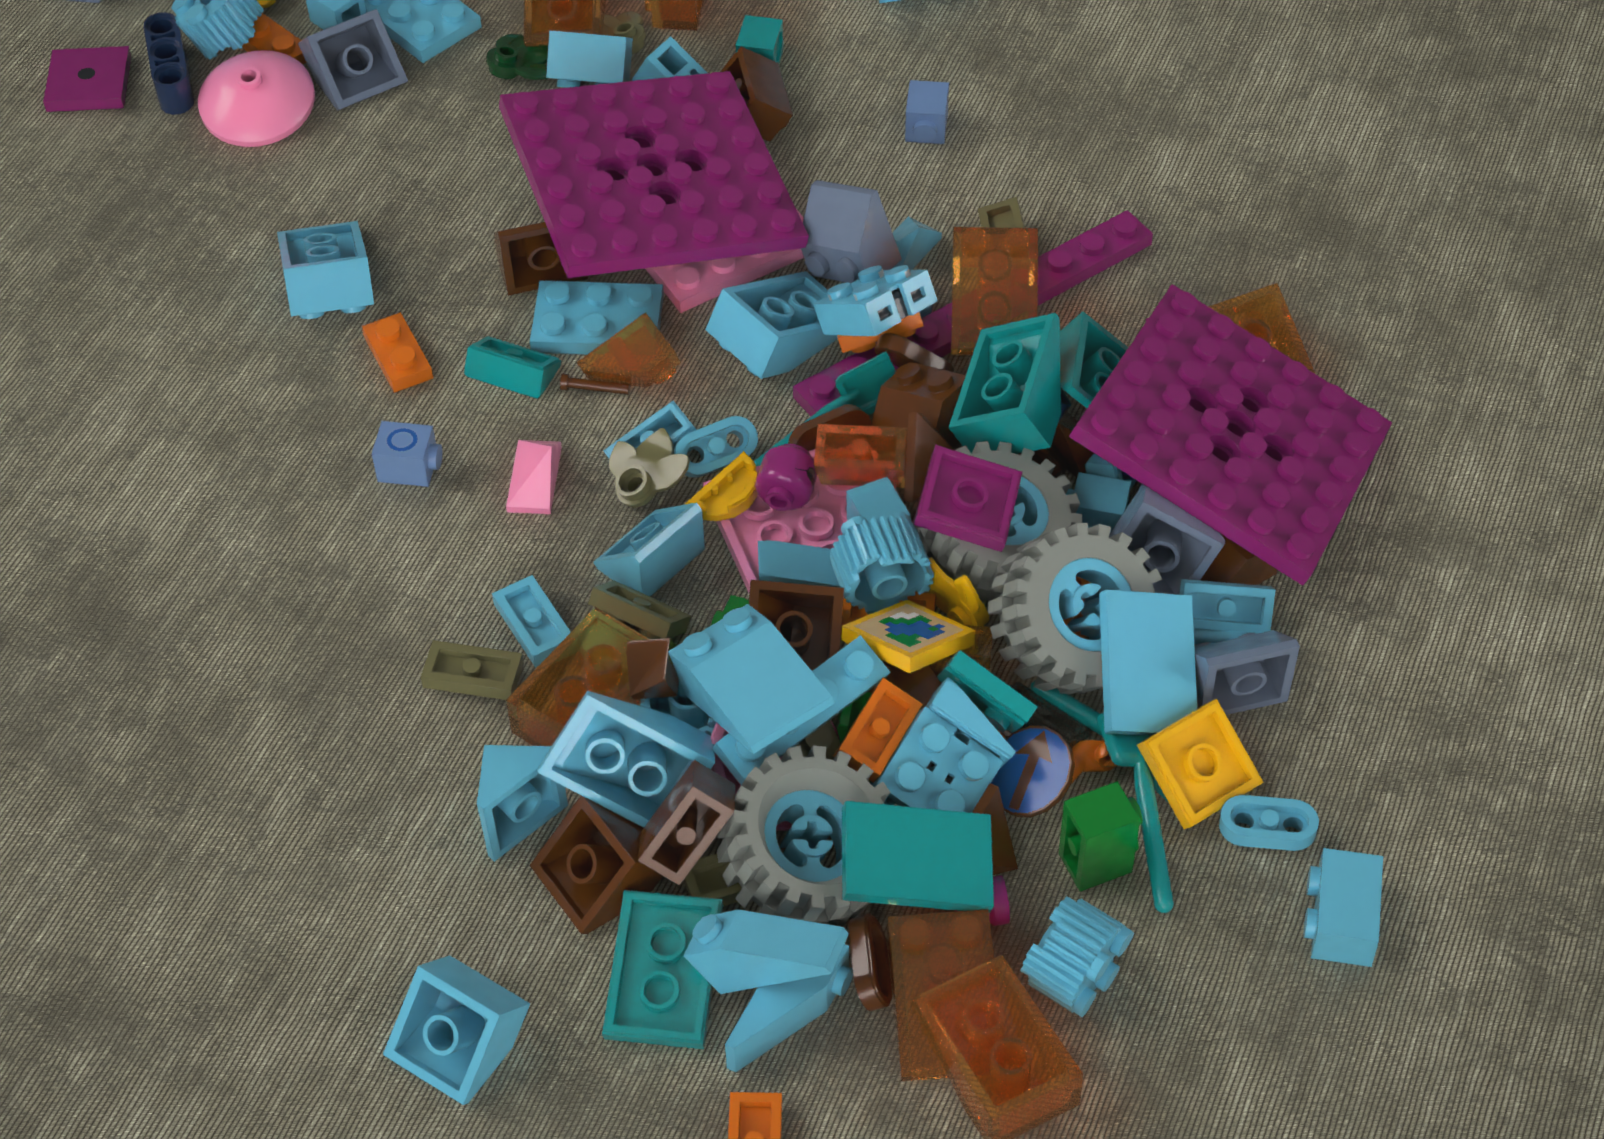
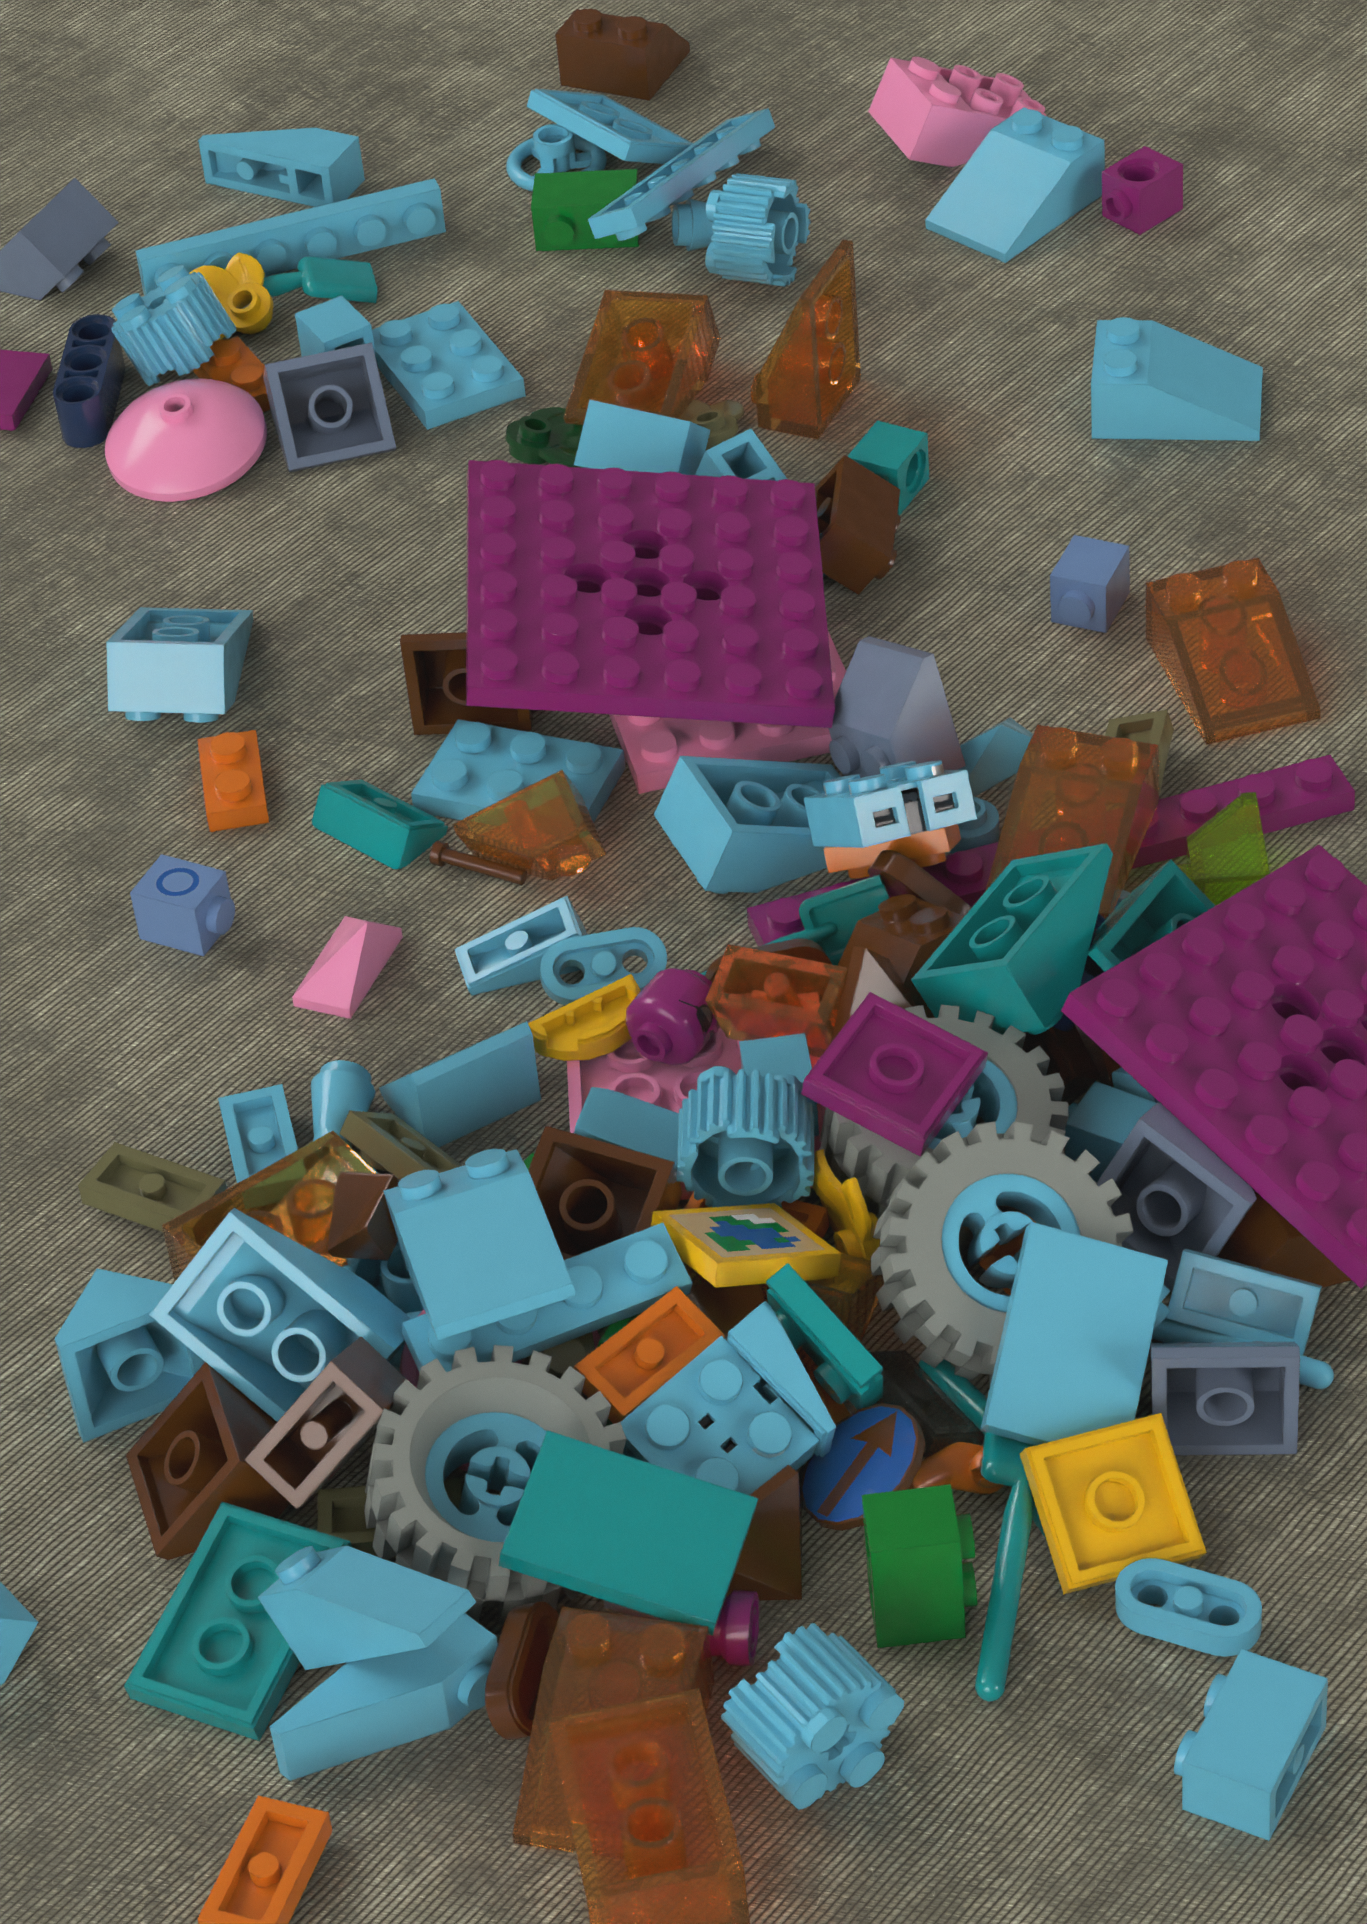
camera: 20 degrees right, 10 degrees down
(575, 579) = (337, 1090): none -> medium azure cone
(650, 465) = (495, 979): olive plate -> none
(1036, 146) = (1229, 650): none -> clear orange slope
(1099, 296) = (1228, 850): none -> clear neon green slope

